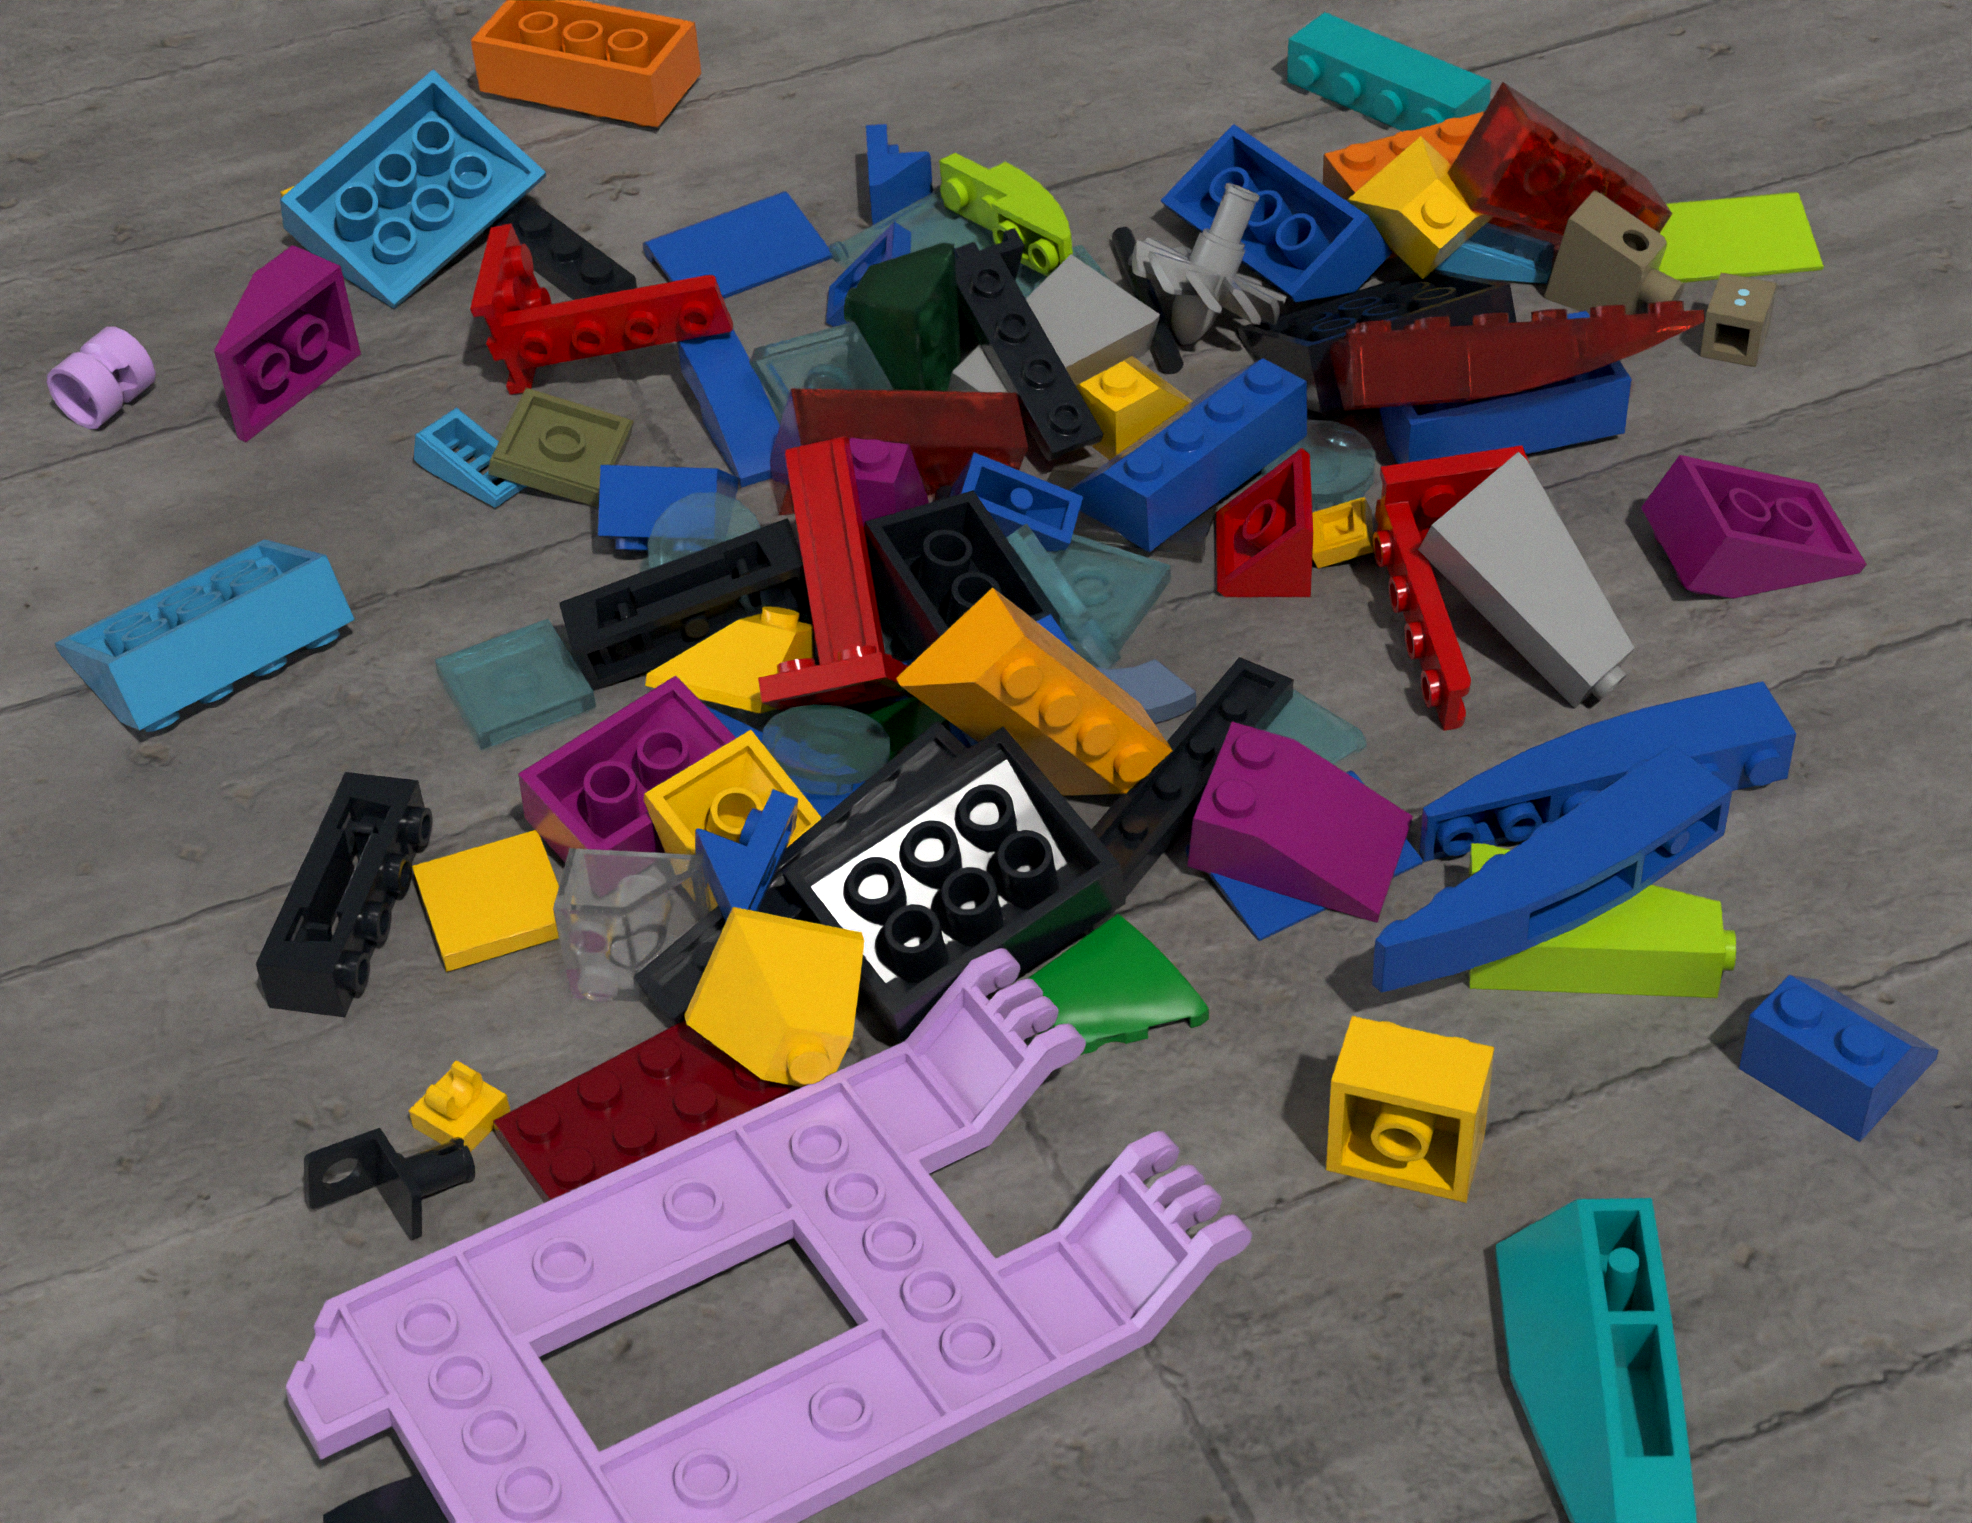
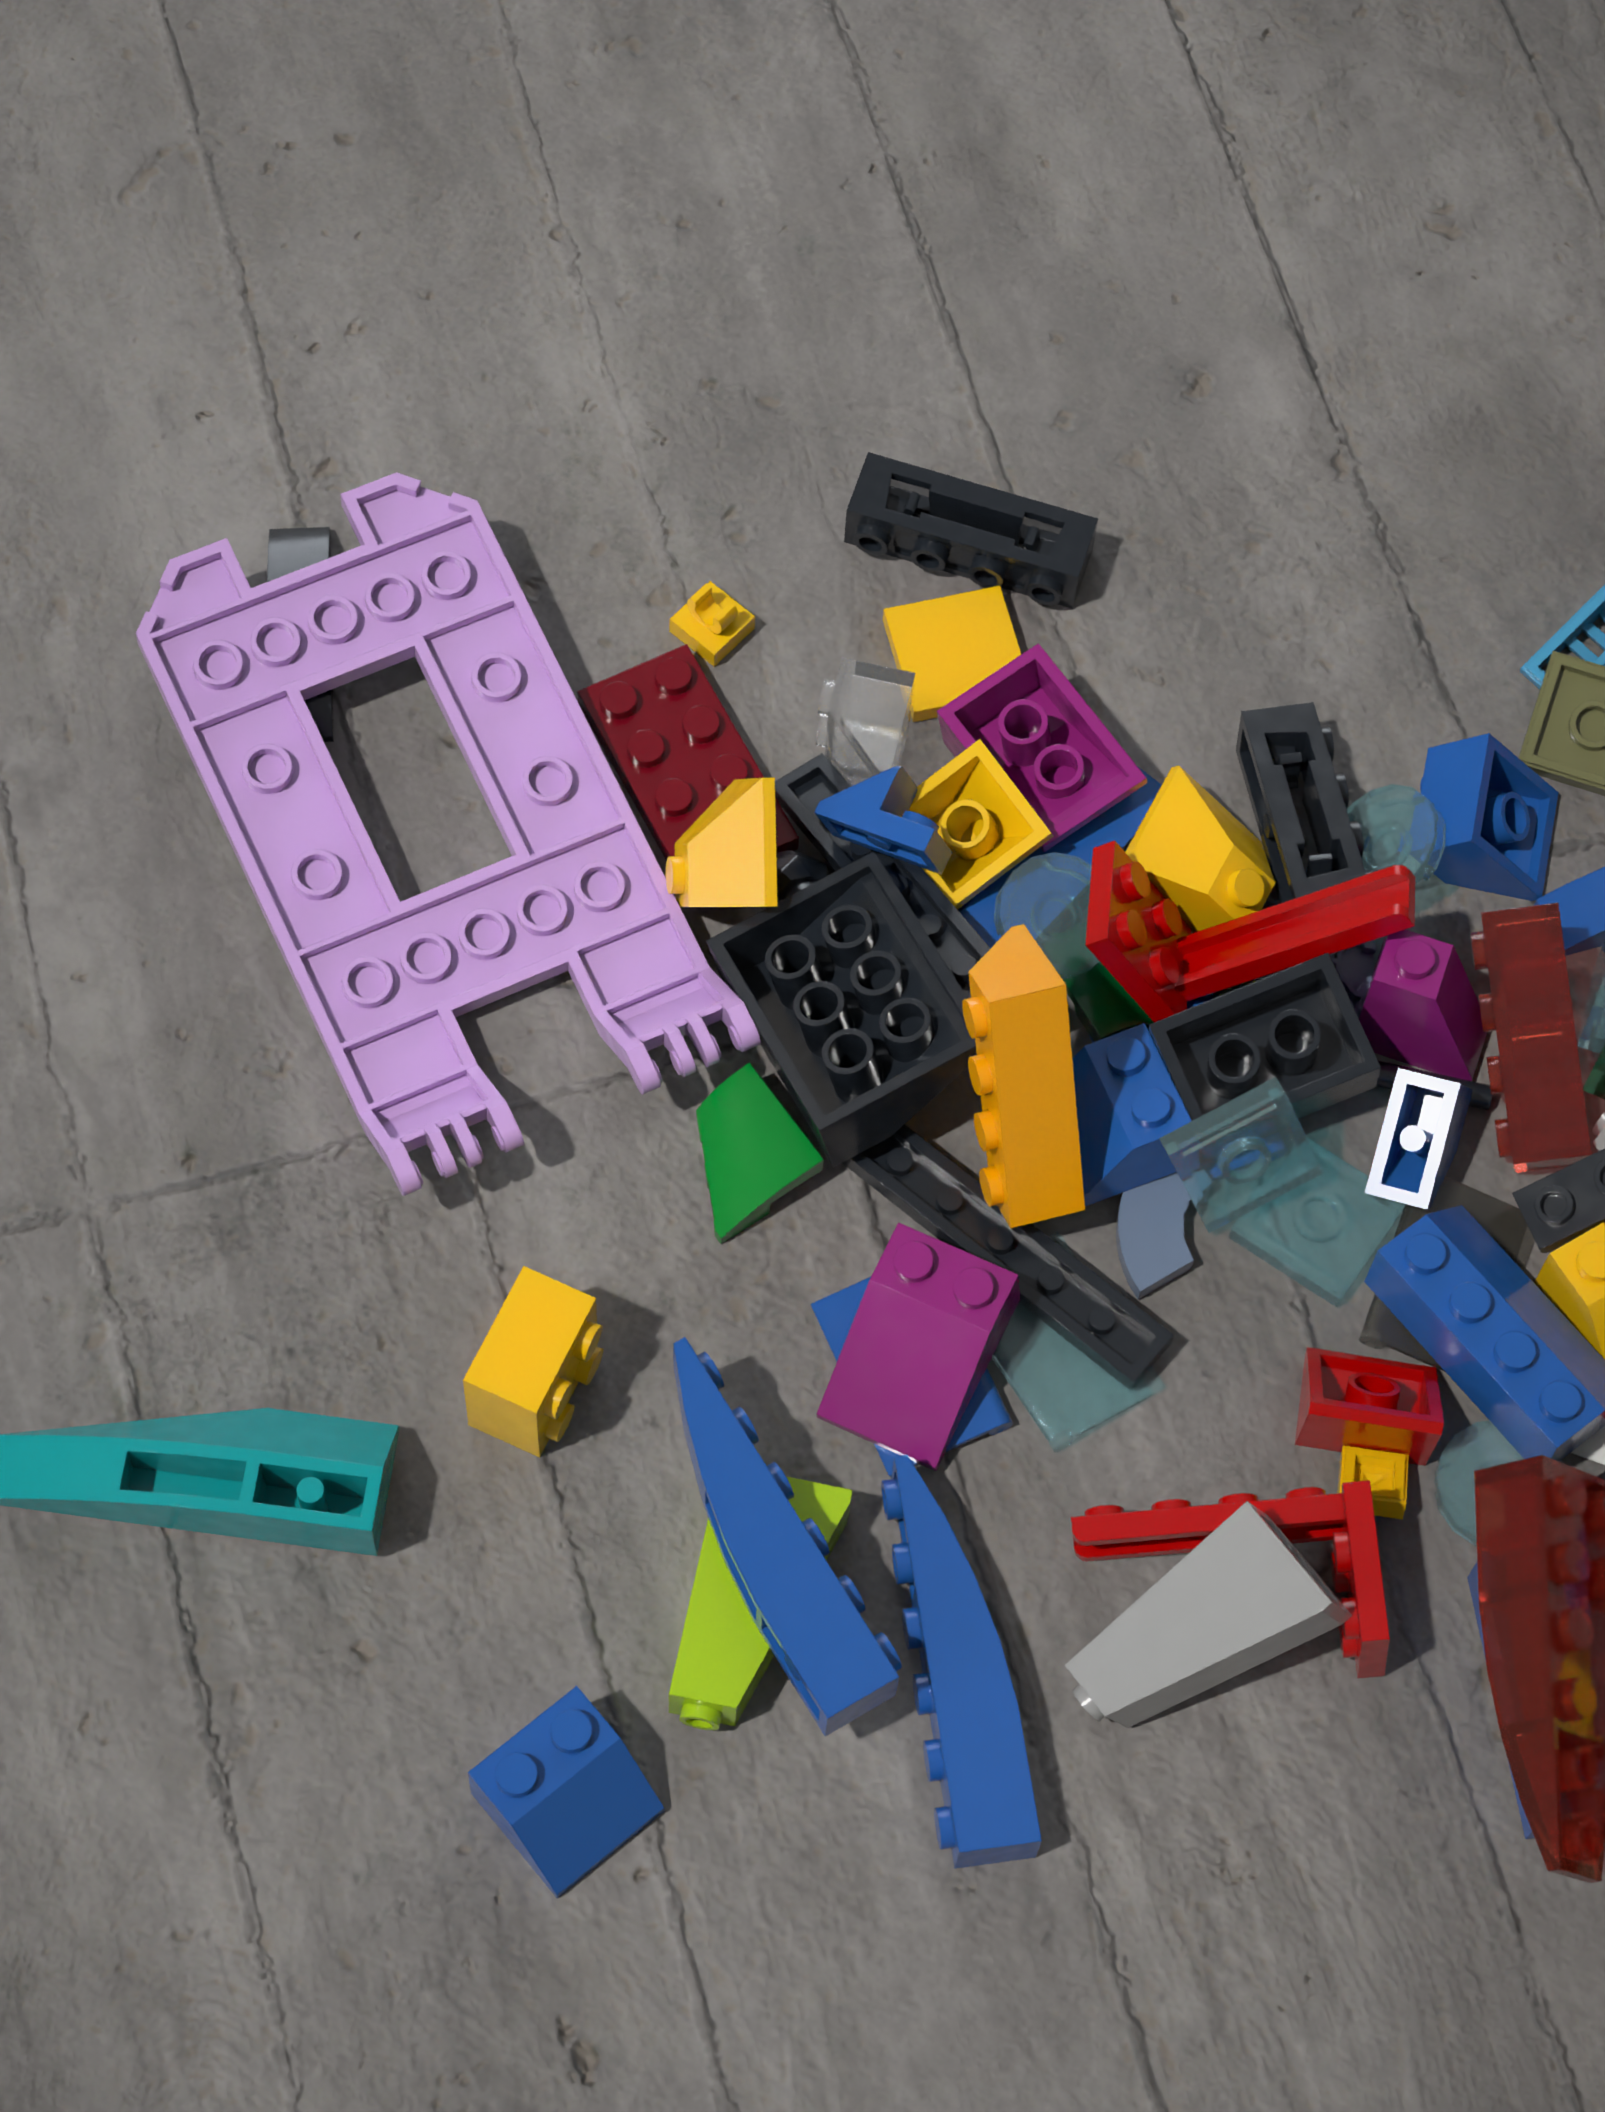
camera: 90 degrees right, 20 degrees up
(208, 633) = (1340, 411): dark azure slope -> none
(397, 1178) = (632, 570): black bracket -> none
(515, 684) = (1239, 669): clear light blue tile -> none
(1746, 530) = (1319, 1927): magenta slope -> none

